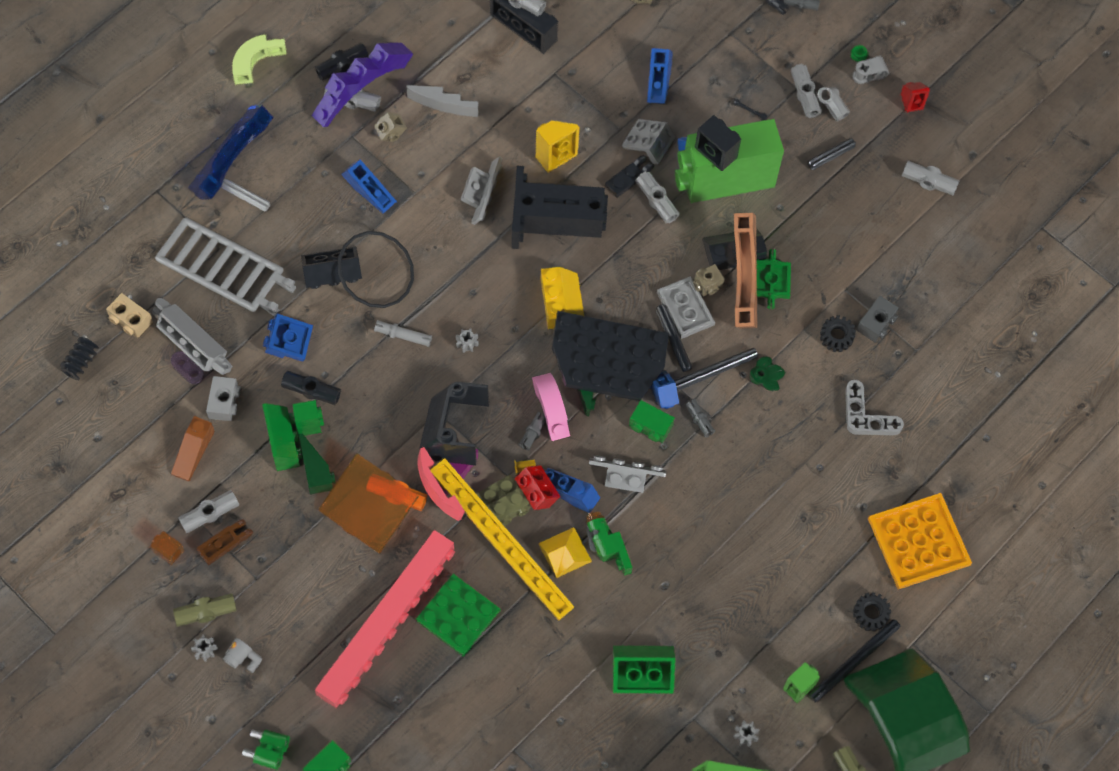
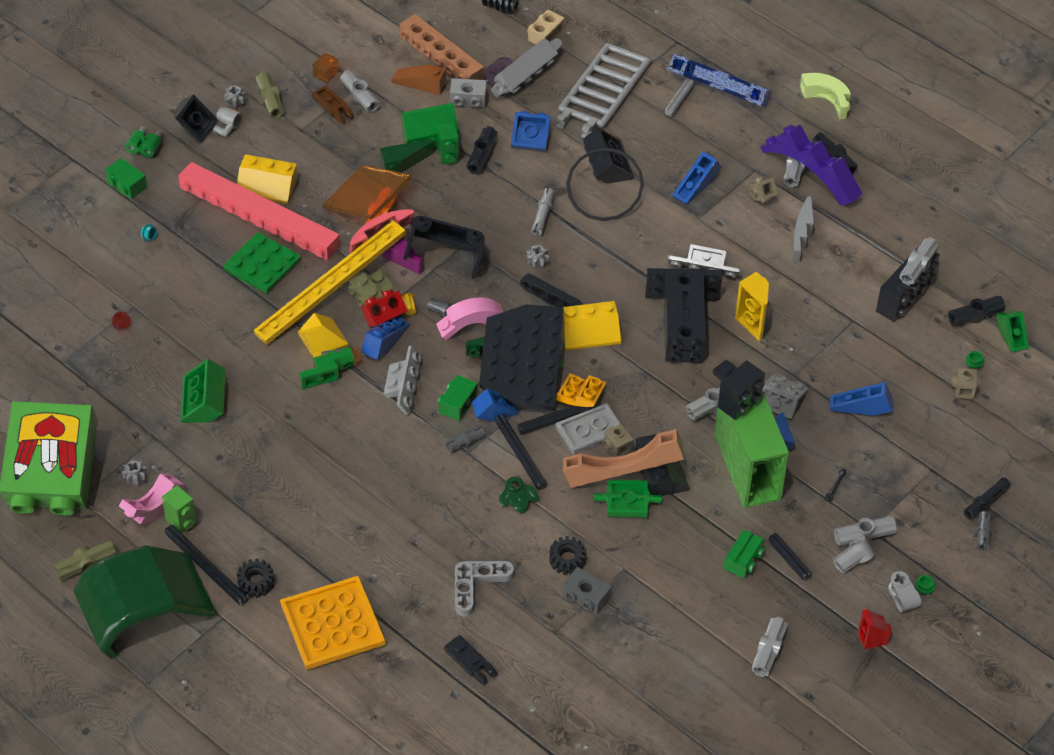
camera: 90 degrees right, 15 degrees down
(156, 414) = (440, 49): none -> nougat brick
(236, 693) = (194, 117): none -> black slope
(339, 610) = (268, 177): none -> yellow slope
(410, 737) = (149, 232): none -> teal plate
(518, 330) = (548, 292): none -> black beam
(537, 760) = (121, 320): none -> clear red plate
(645, 309) = (579, 391): none -> light orange slope
(785, 712) = (151, 505): none -> bright pink arch
(833, 188) = (744, 554): none -> green brick
(951, 423) = (469, 659): none -> black hinge

